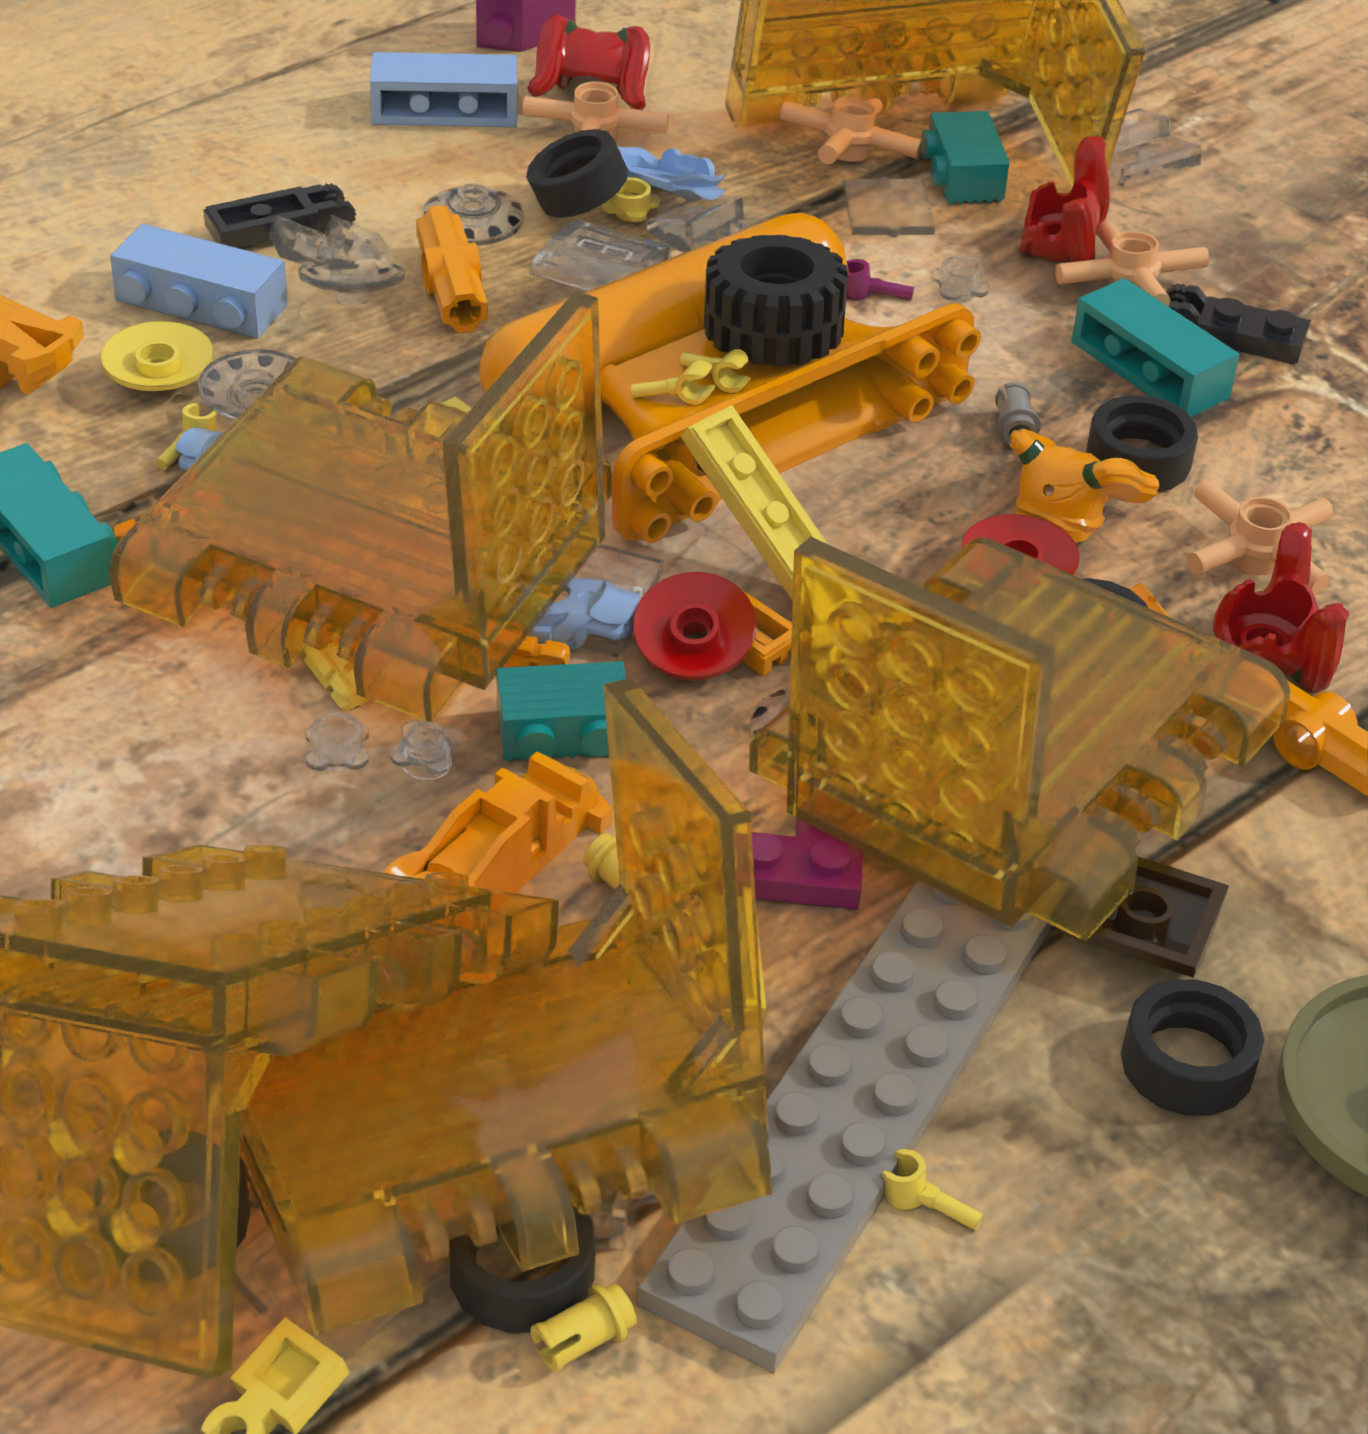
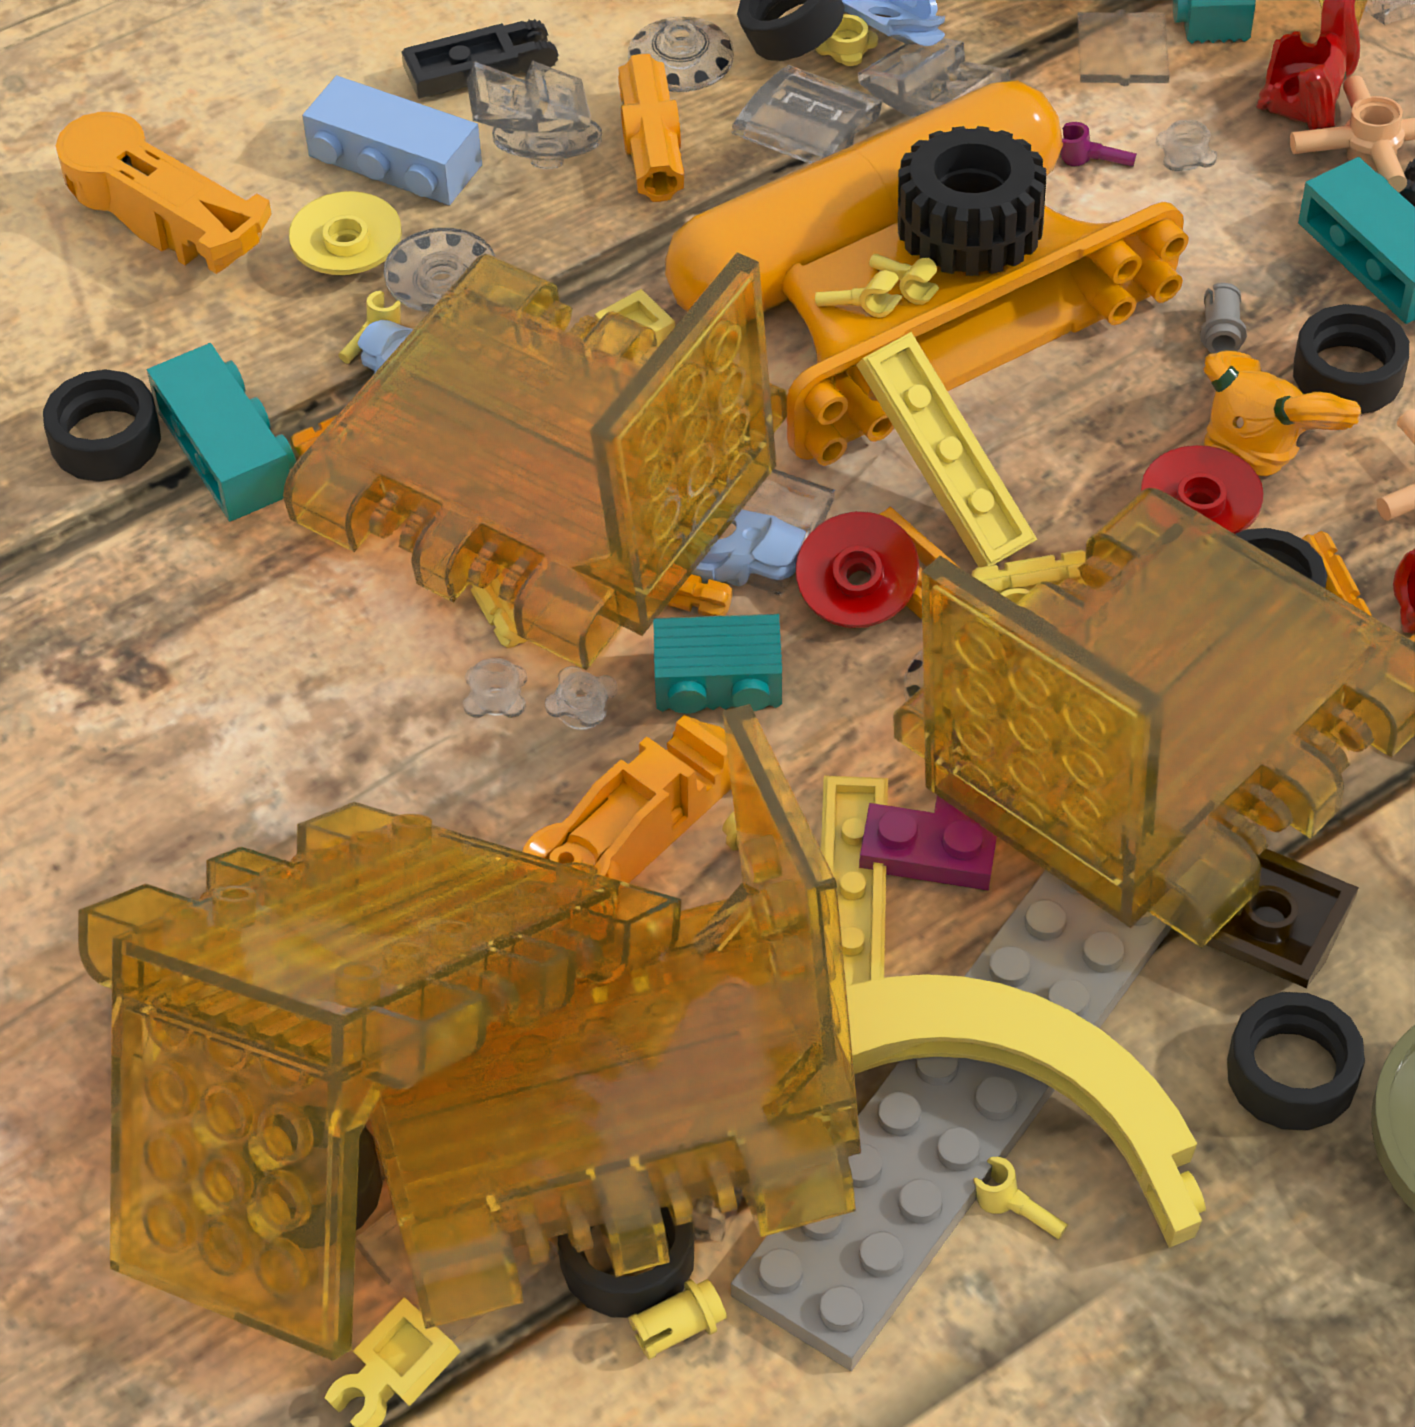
camera: 10 degrees right, 10 degrees up
(959, 1037) = (1024, 1032): none -> light yellow arch

